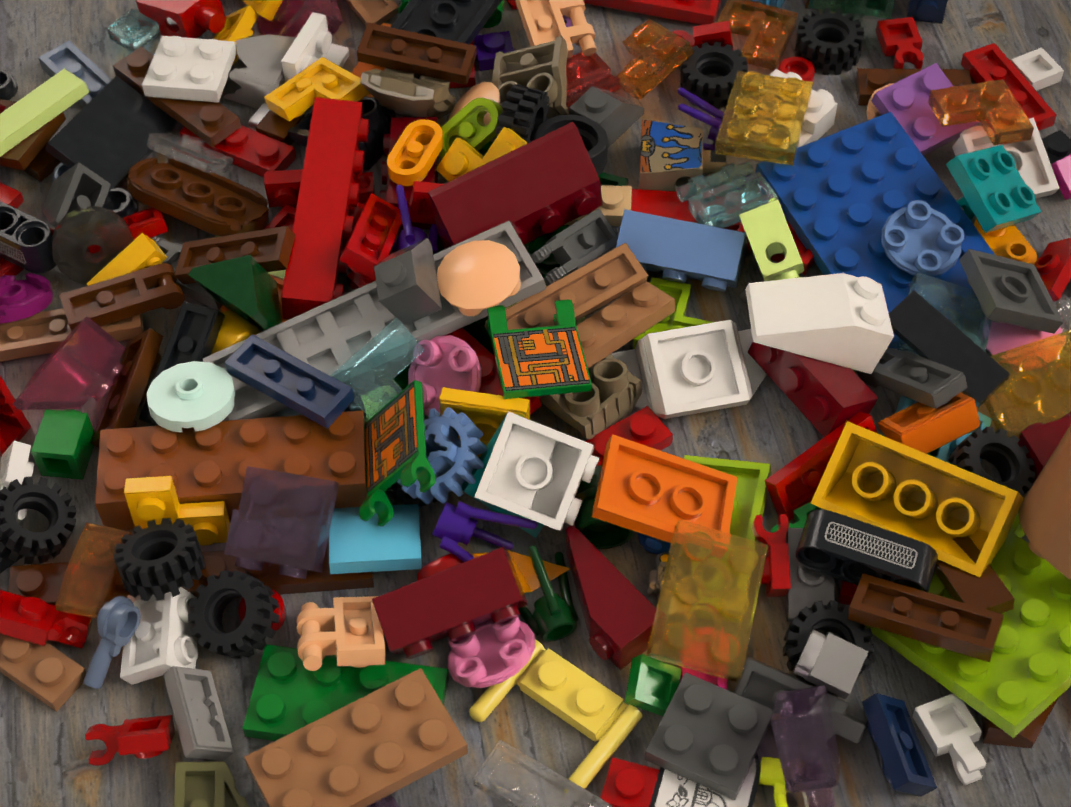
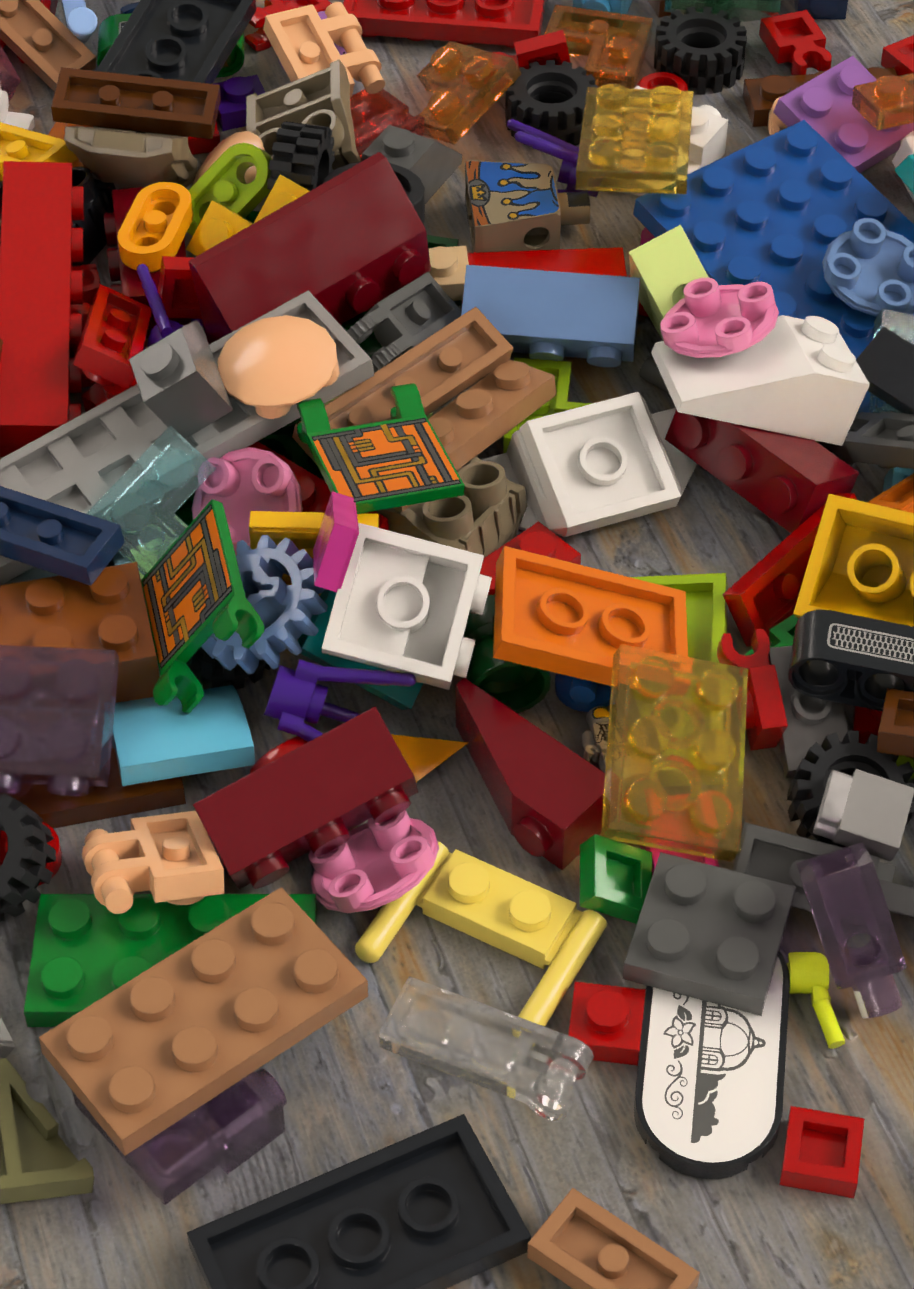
camera: 10 degrees left, 5 degrees down
(492, 423) = (335, 542): none -> dark pink tile
(552, 616) = (454, 799): dark green plant -> none
(725, 194) = (597, 241): clear light blue plate -> none
(794, 273) = (719, 321): none -> bright pink dish

